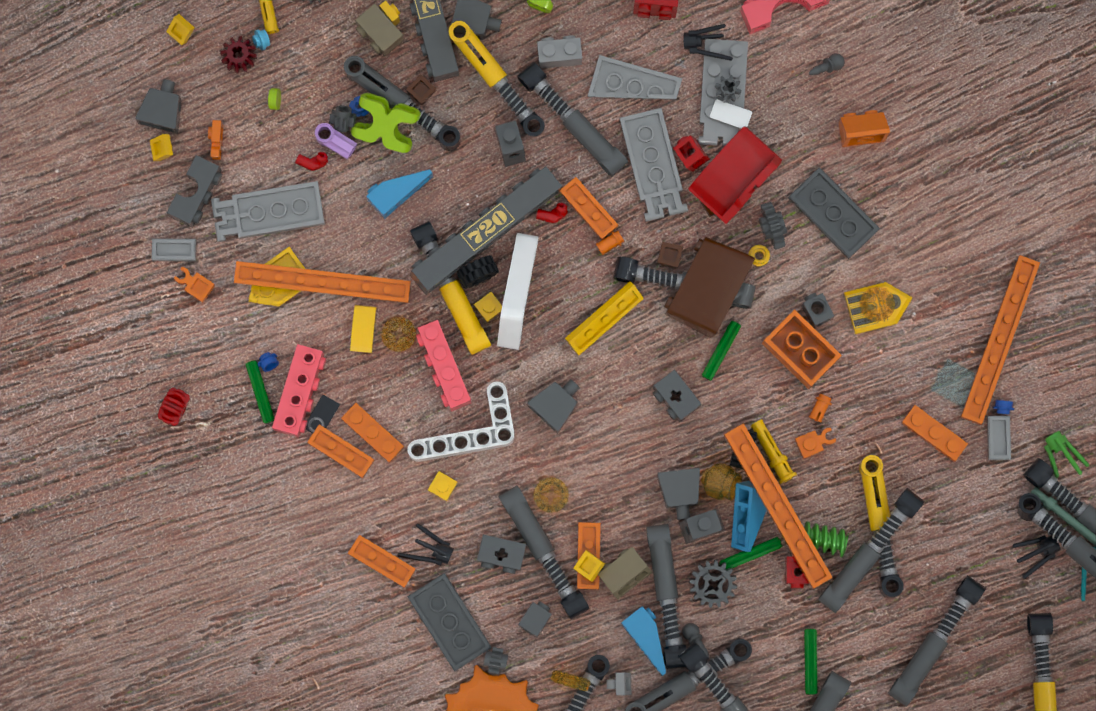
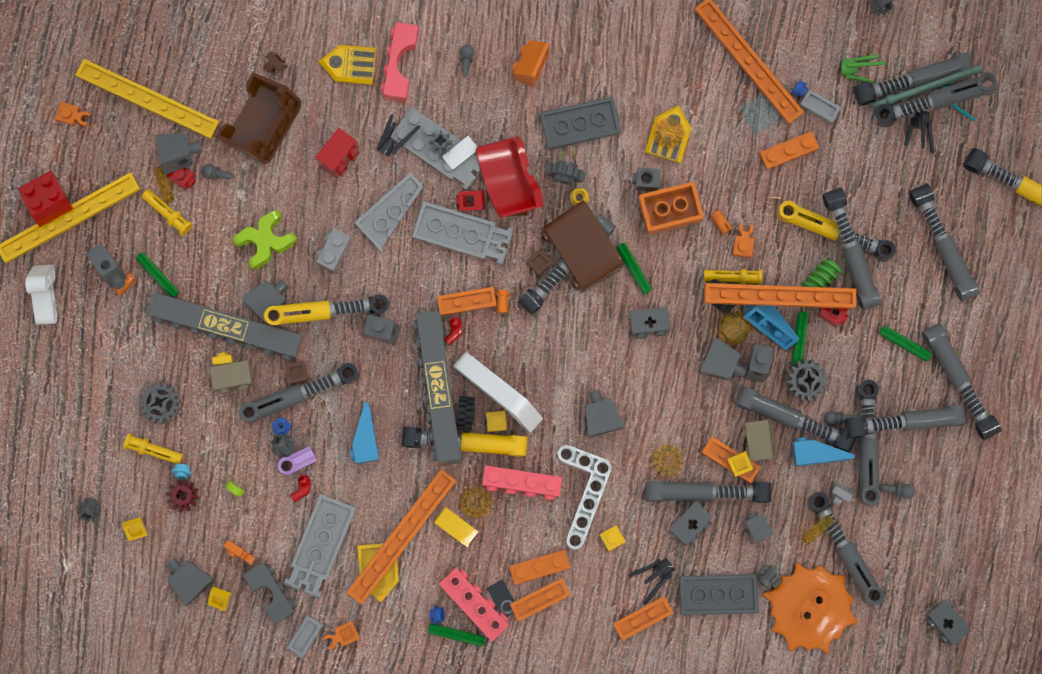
camera: 60 degrees left, 0 degrees up
(385, 122) = (307, 414): lime piece -> none
(604, 318) = (558, 340): yellow plate -> none
(608, 157) = (435, 263): piece -> none

